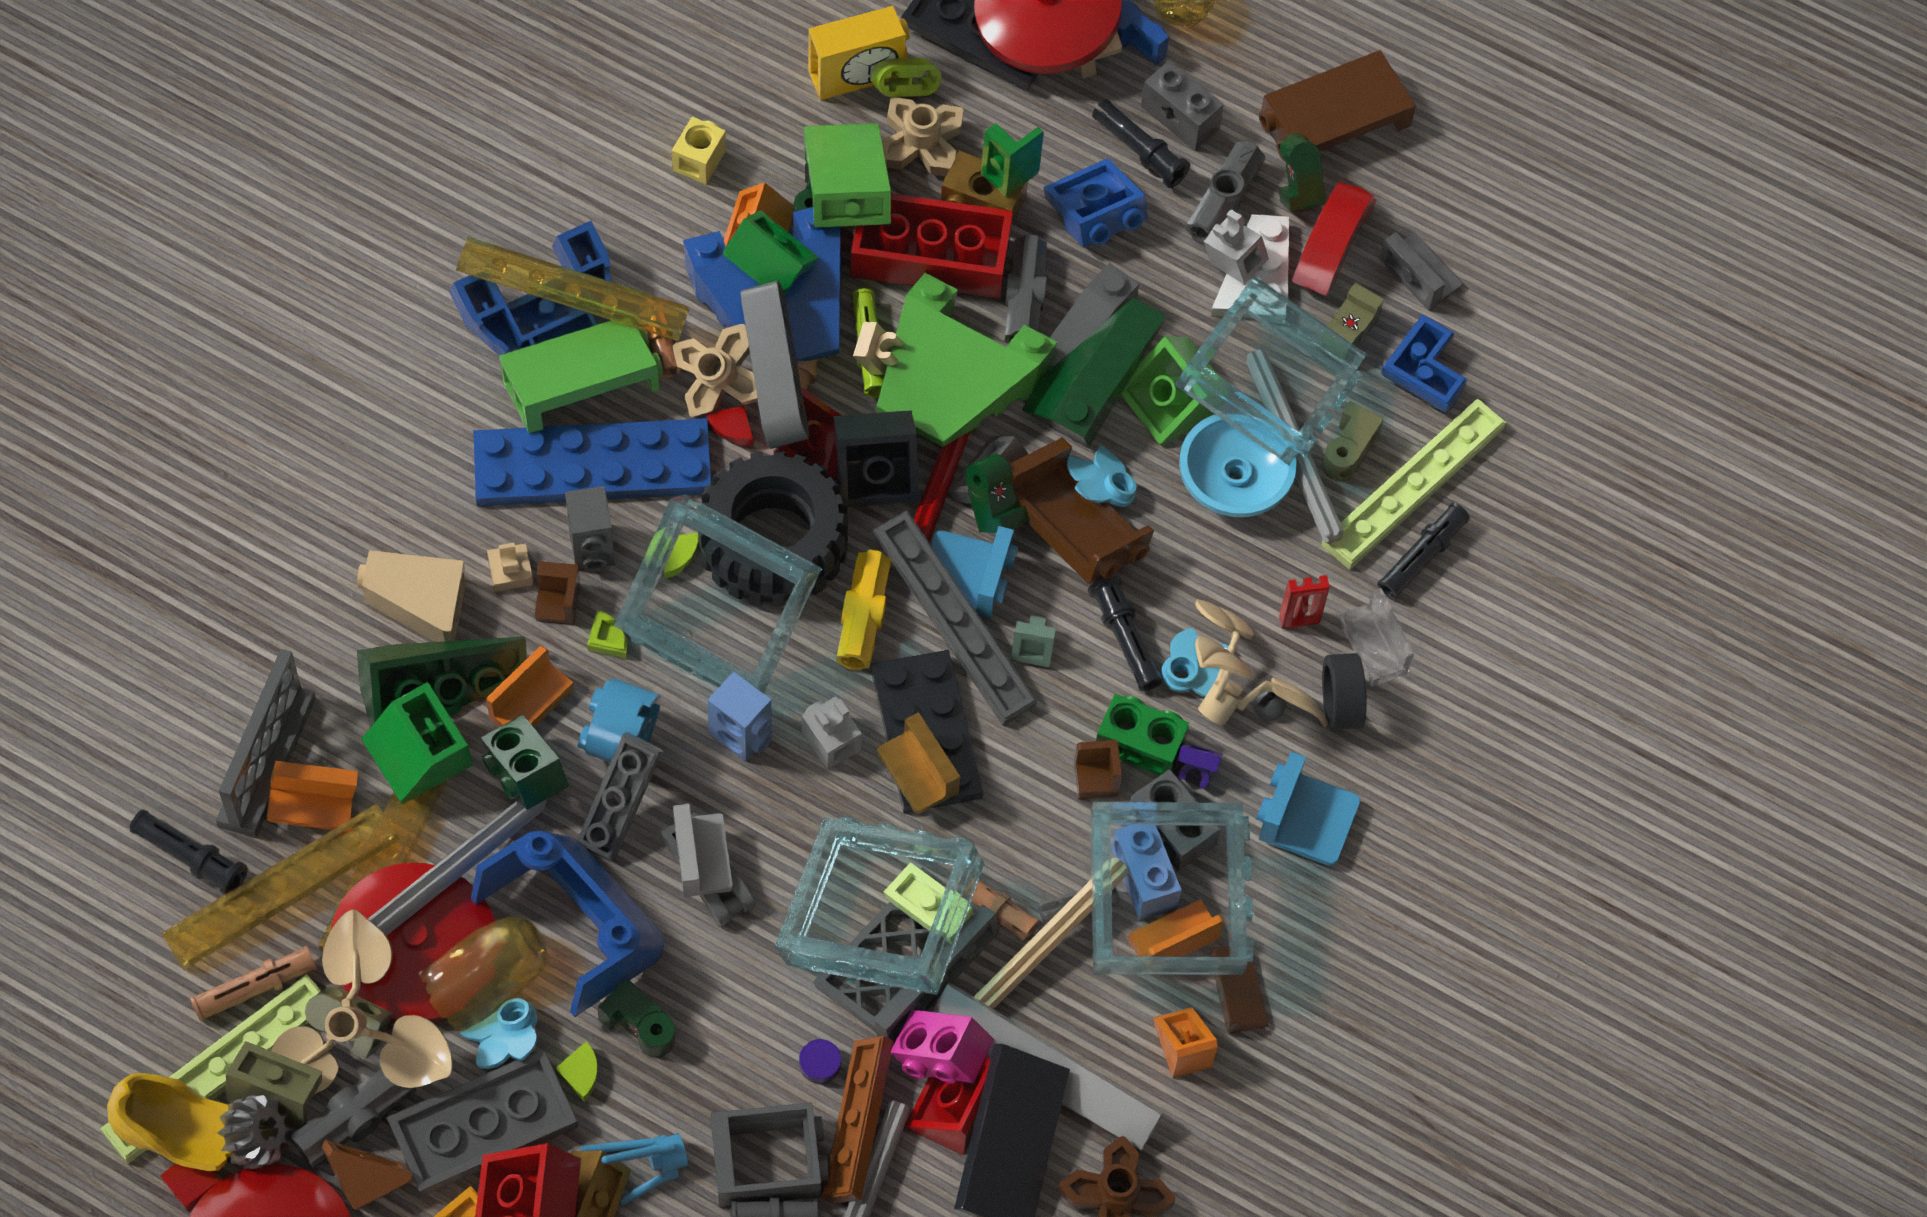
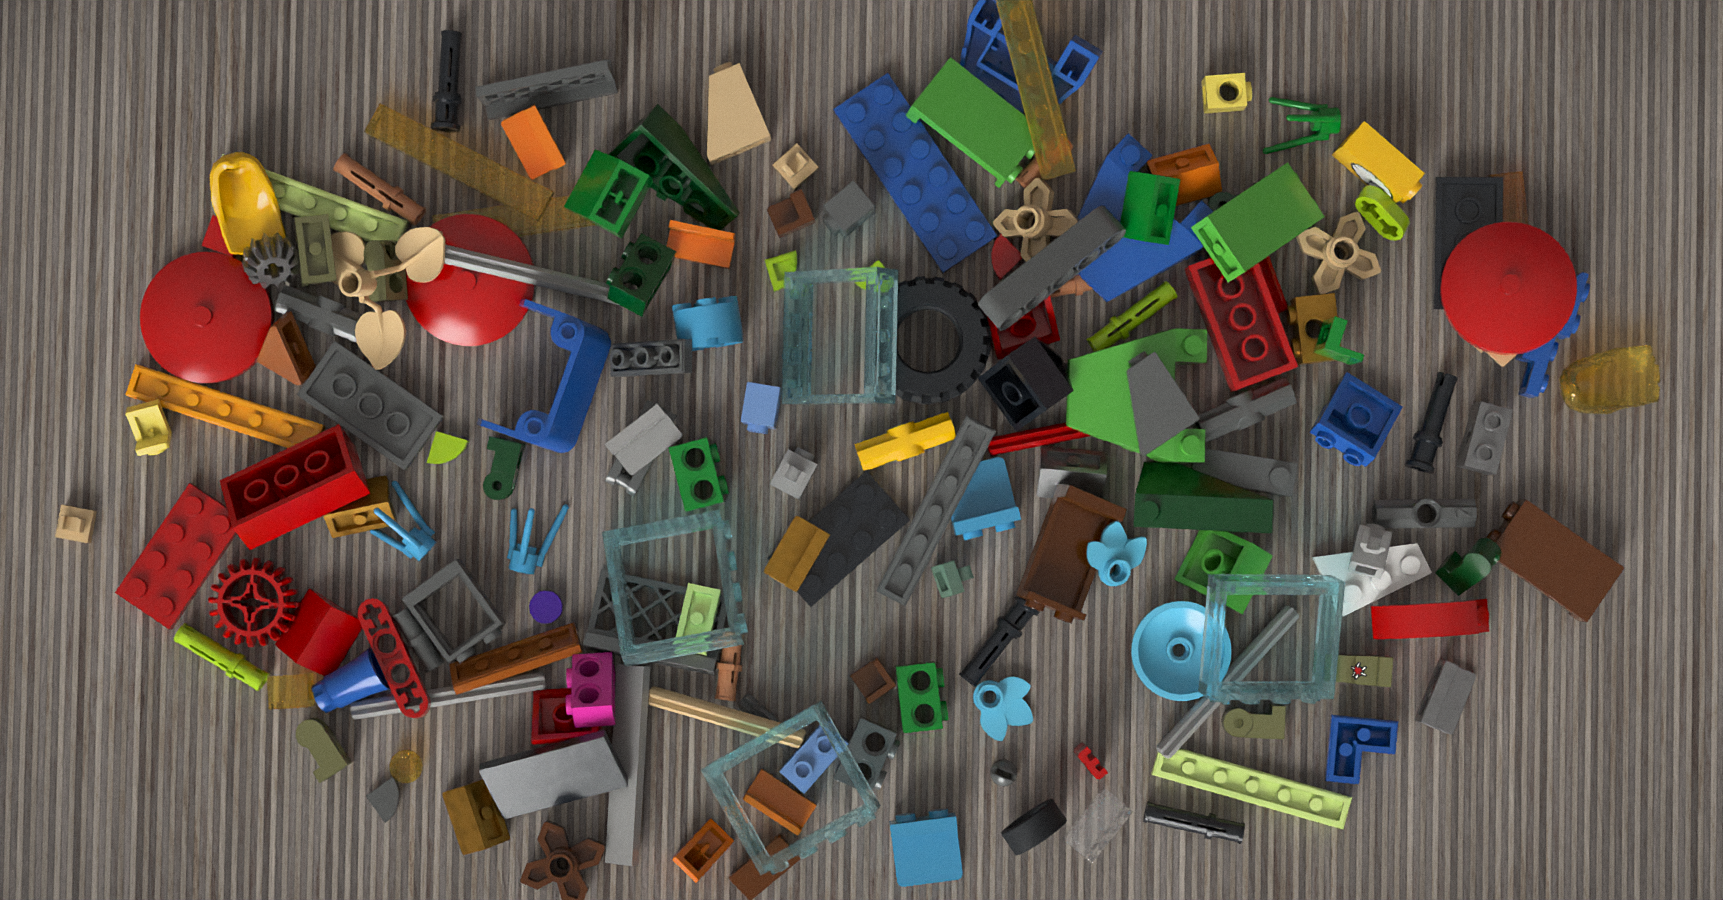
camera: 65 degrees right, 25 degrees up
(485, 971) = (475, 343): clear yellow hair -> none
(505, 1034) = (436, 381): medium azure plate -> none
(752, 1049) = (524, 556): none -> dark azure plant
(768, 836) = (689, 477): none -> green brick
(781, 85) = (1321, 119): none -> green plant
(875, 348) = (1117, 330): tan tile -> none
(971, 342) = (1156, 403): none -> dark grey slope
(994, 495) = (1045, 488): dark green leg -> none
(1199, 759) = (924, 747): dark purple tile -> none
(1225, 693) = (981, 739): tan plant -> none

